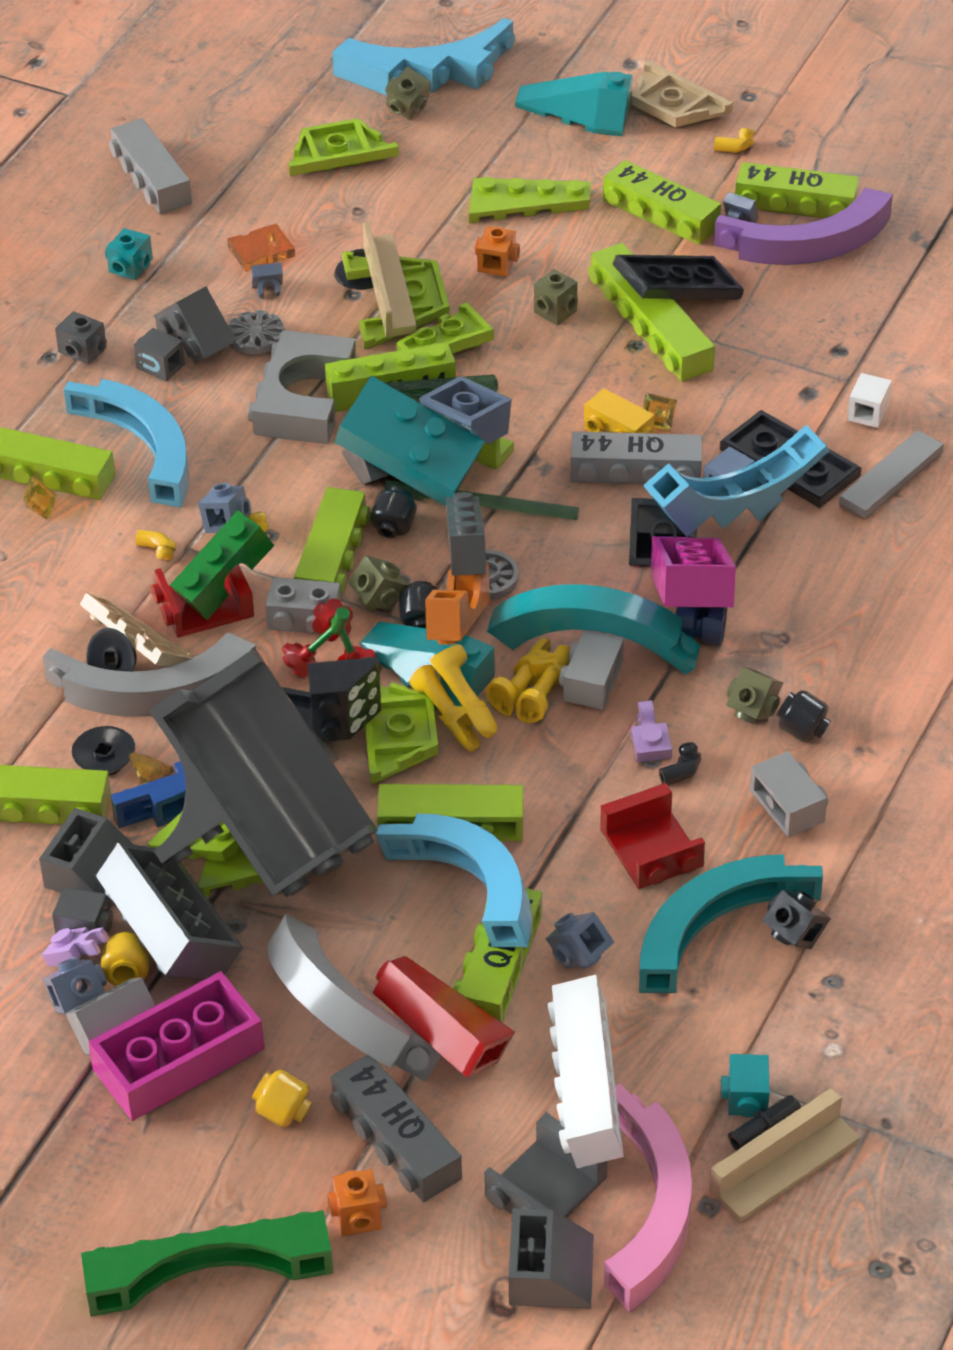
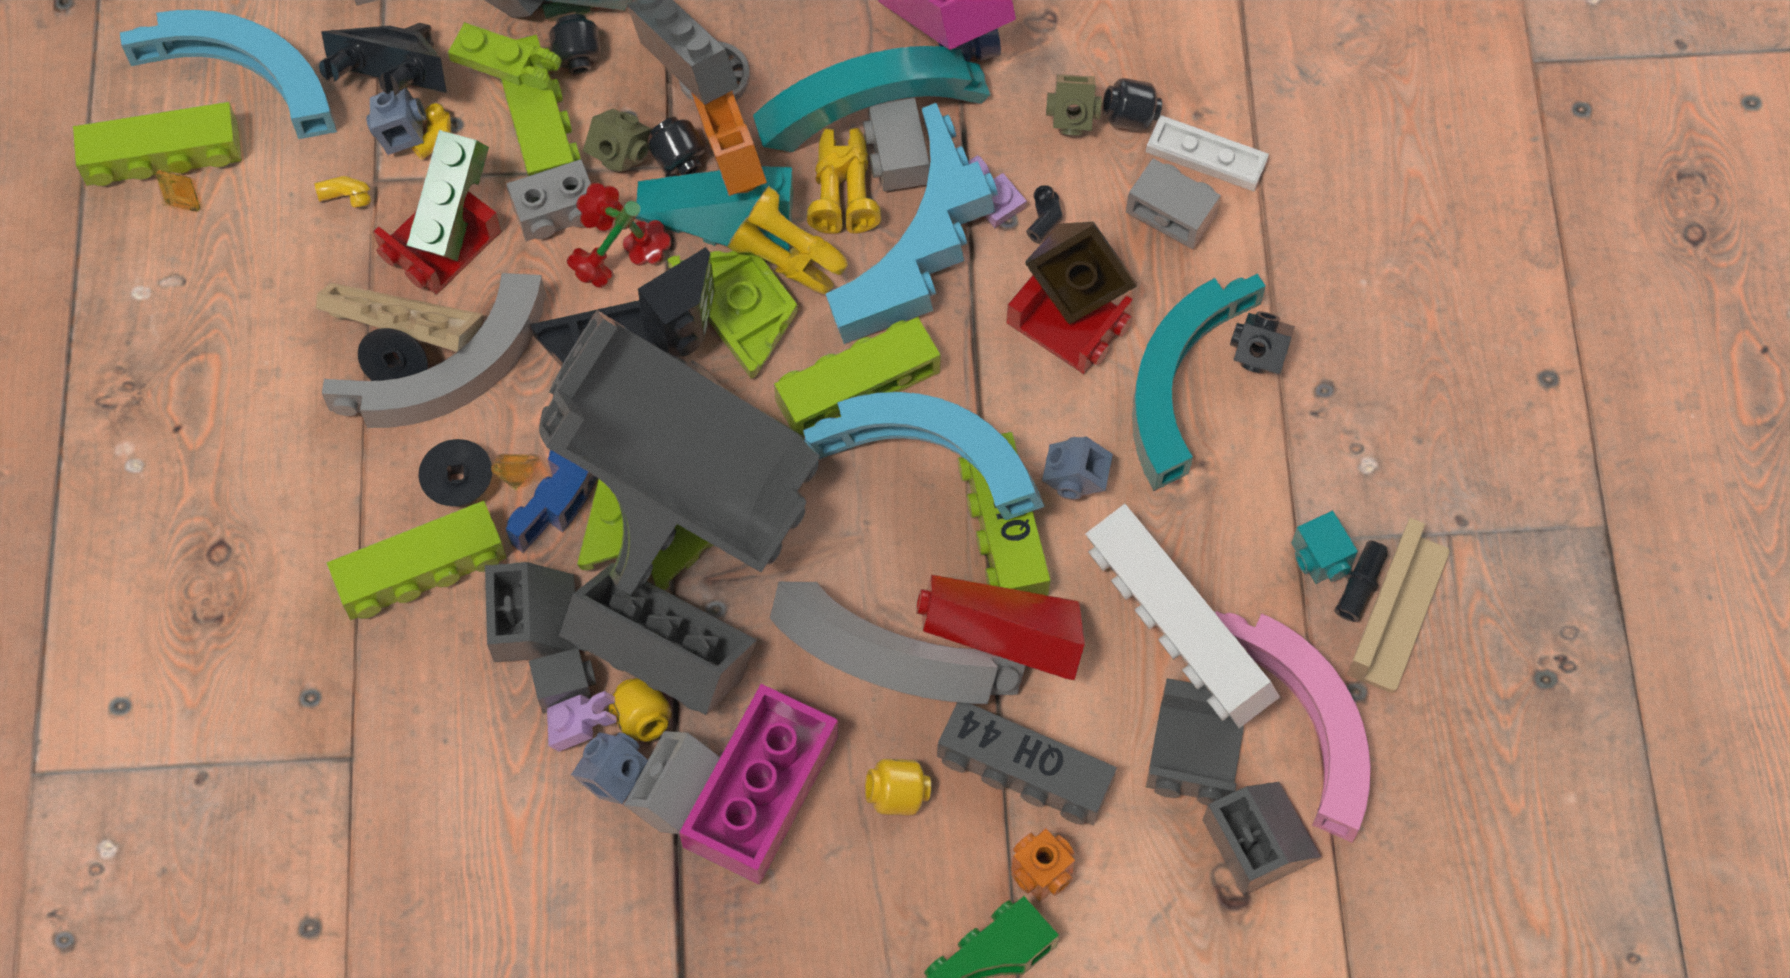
camera: 30 degrees left, 20 degrees up
(243, 464) = (387, 52): none -> black connector
(327, 494) = (502, 57): none -> lime hinge
(571, 741) = (901, 282): none -> medium azure arch
(670, 802) = (1079, 270): none -> dark brown slope
(847, 777) = (1207, 153): none -> white tile

